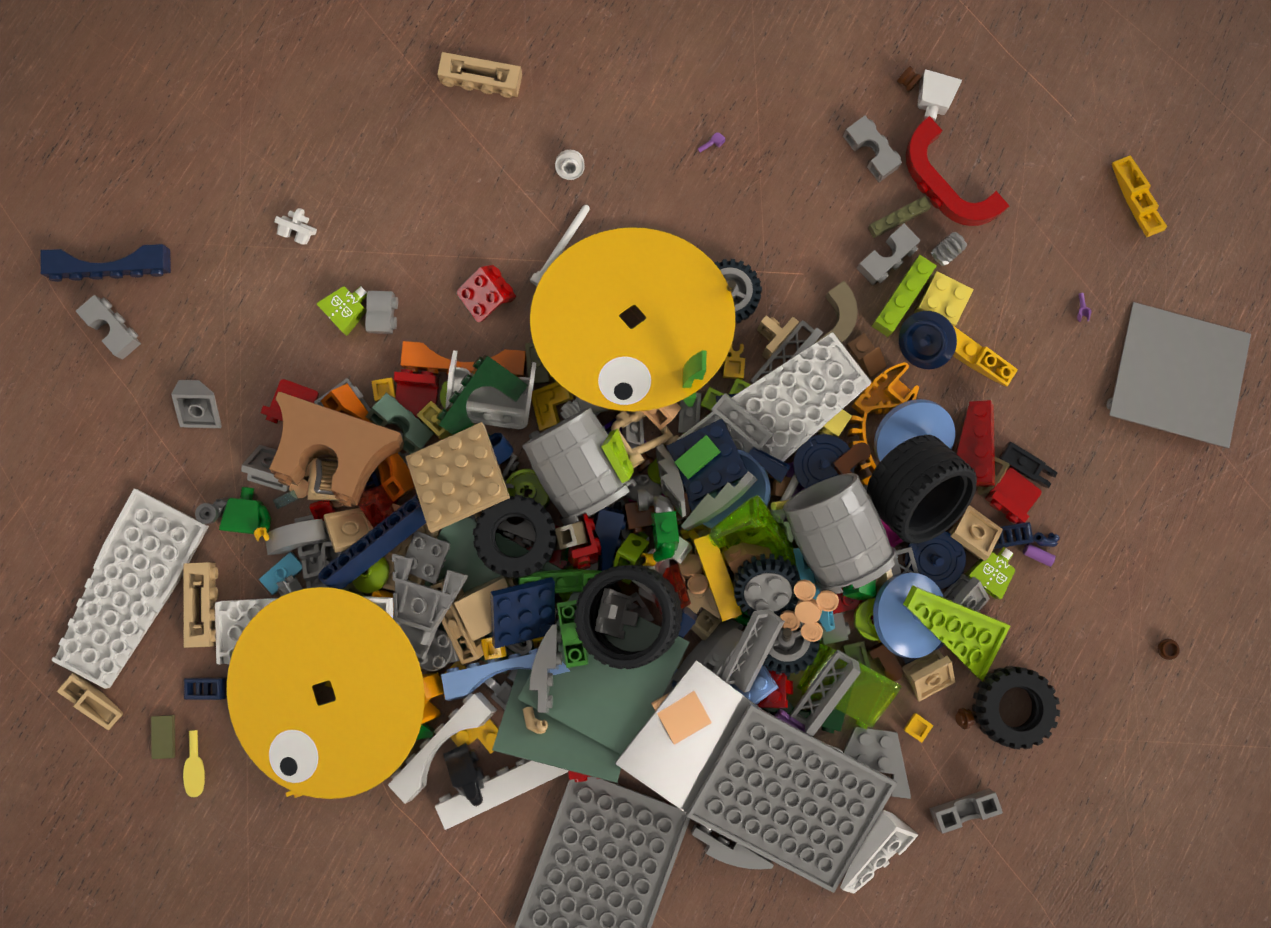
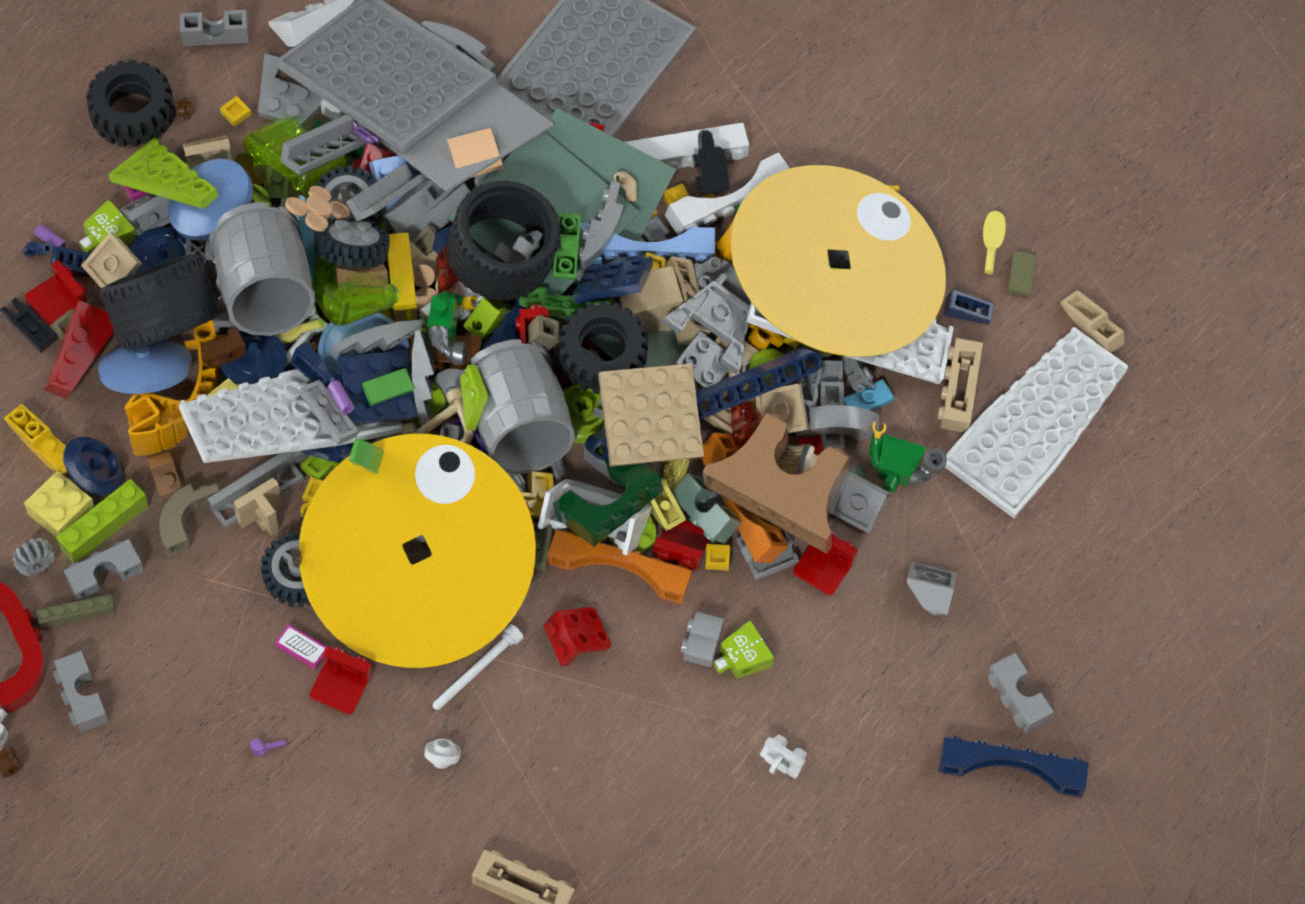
camera: 170 degrees left, 20 degrees down
(667, 205) = (341, 680): none -> red bracket
(708, 231) = (301, 646): none -> tile
(735, 434) = (341, 397): none -> medium lavender axle

